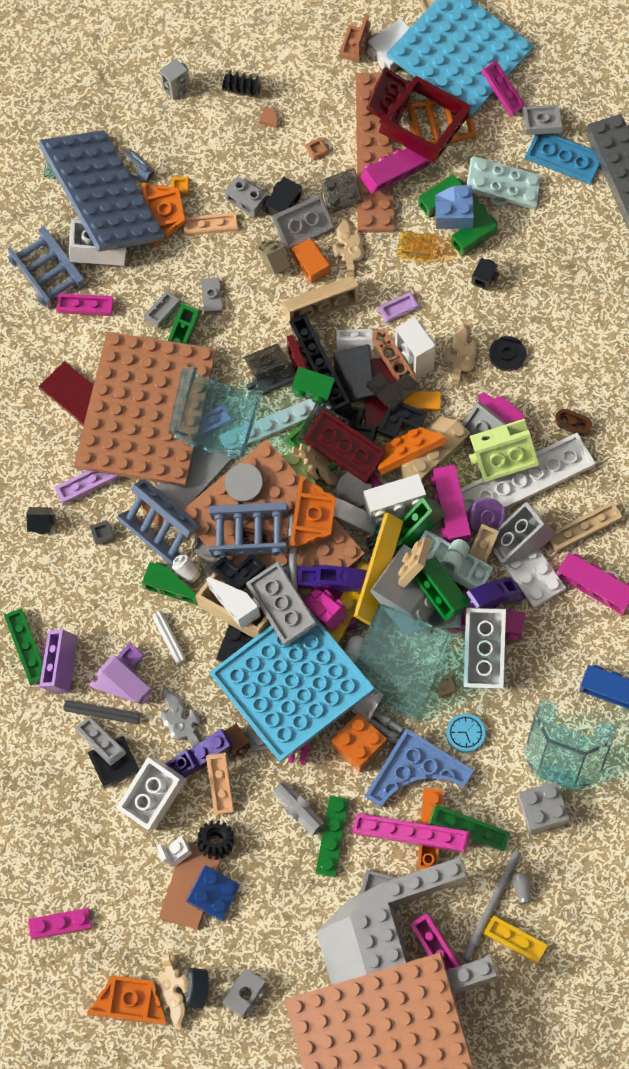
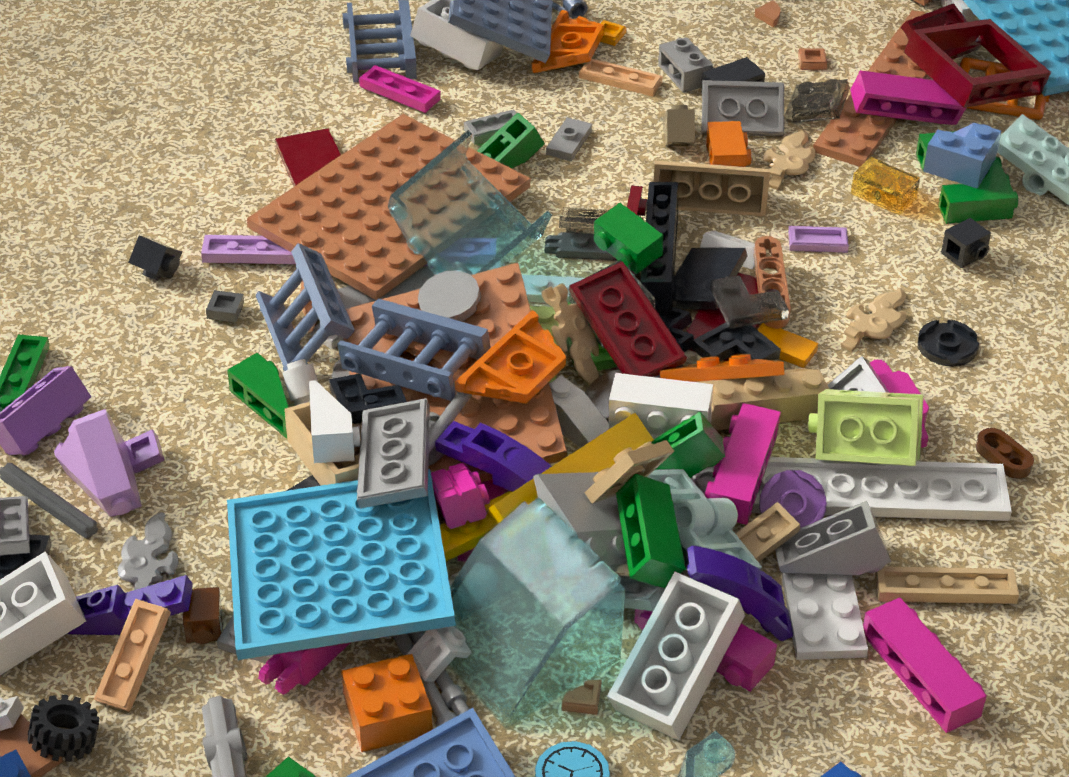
camera: 25 degrees right, 25 degrees down
(169, 637) = (215, 456): white axle -> none
(416, 347) = (810, 267): white brick -> none

